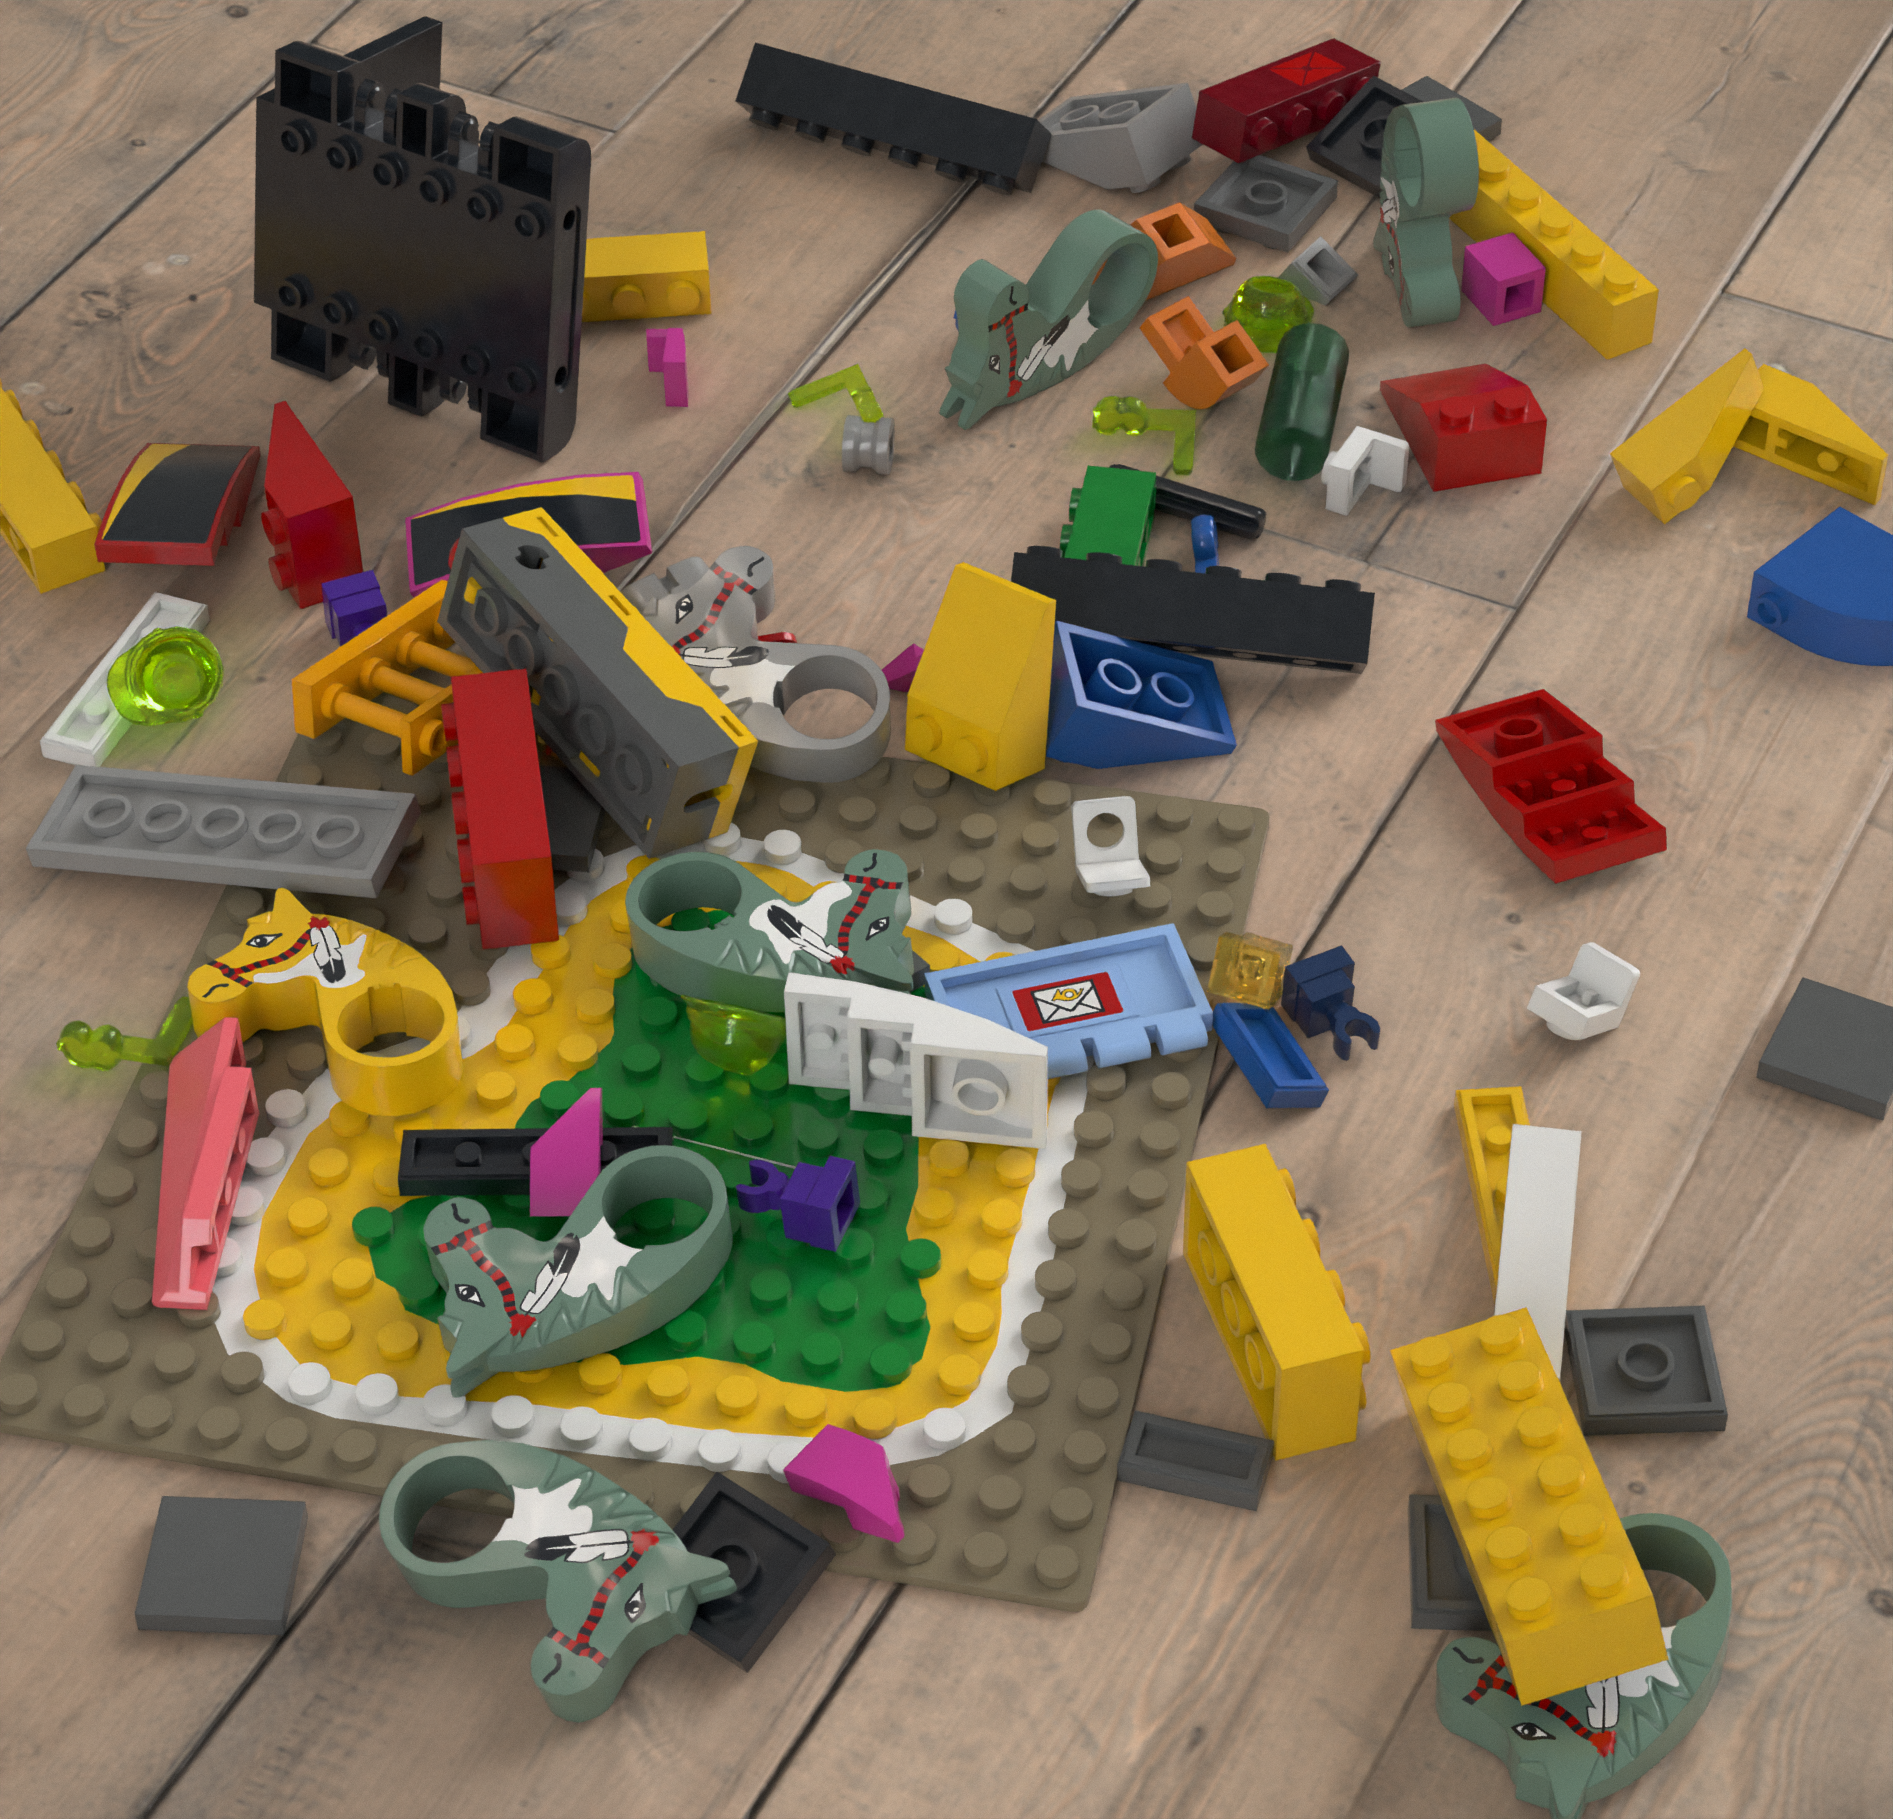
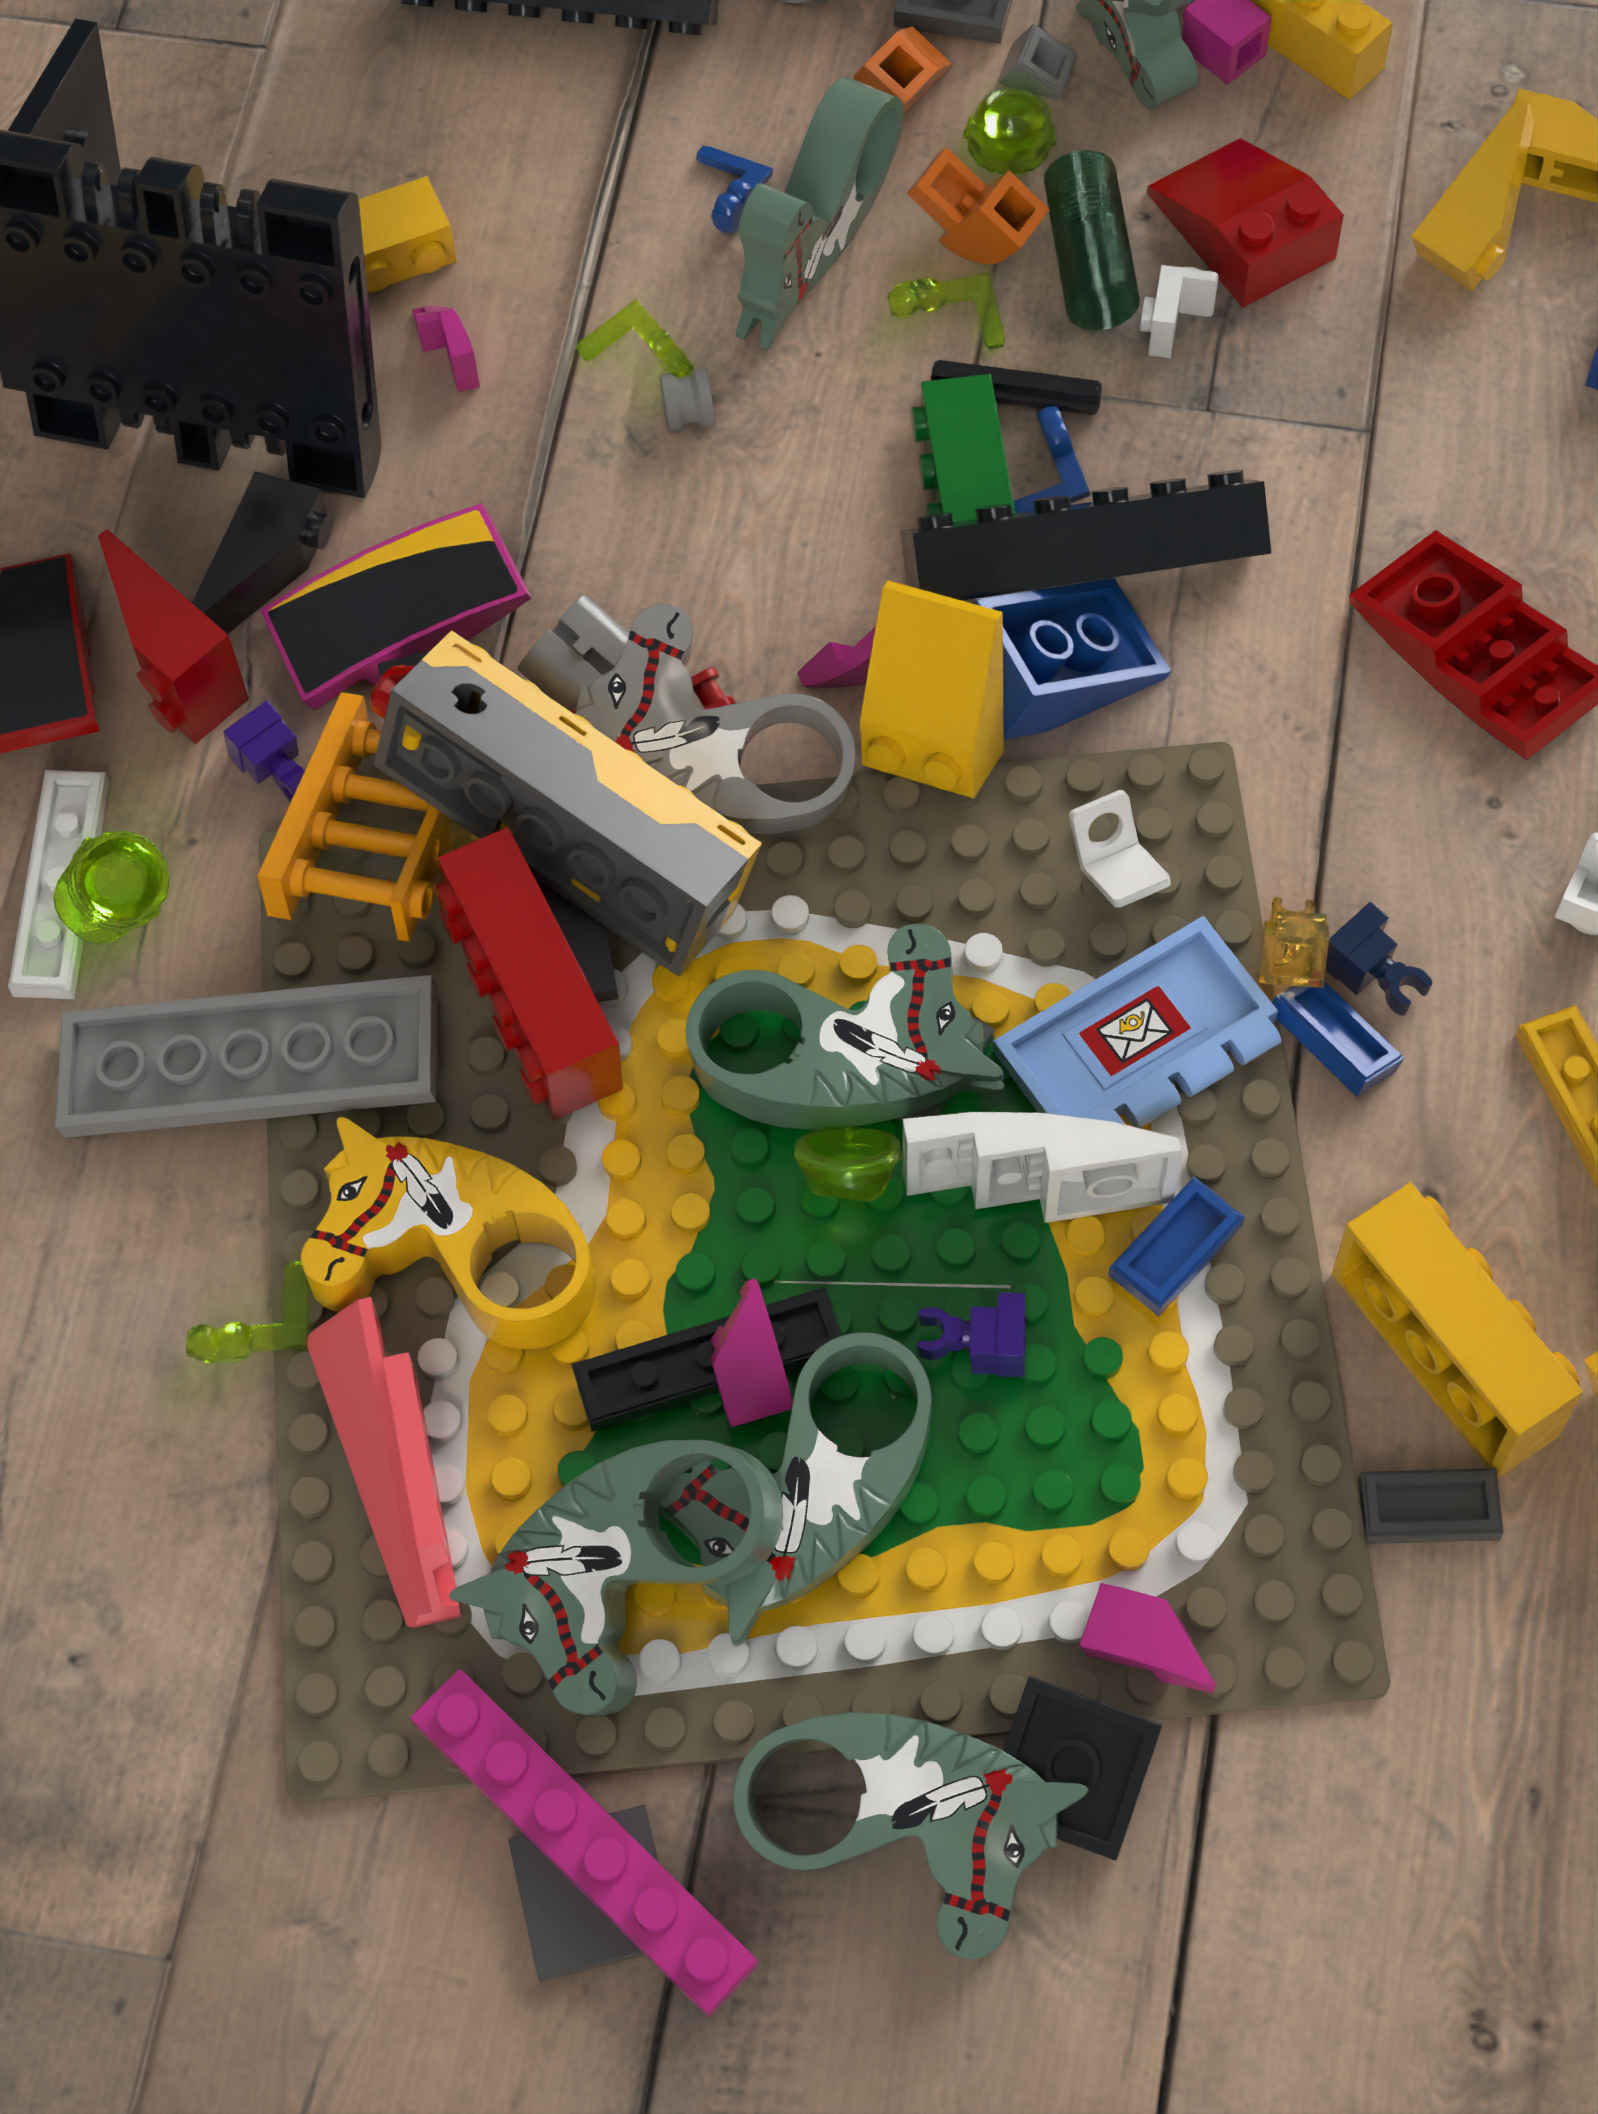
camera: 15 degrees left, 20 degrees up
(232, 1514) = (585, 1843): none -> dark pink plate
(360, 1253) = (572, 1560): none -> sand green animal
(428, 468) = (263, 548): none -> black slope
(1030, 1179) = (1176, 1246): none -> blue tile

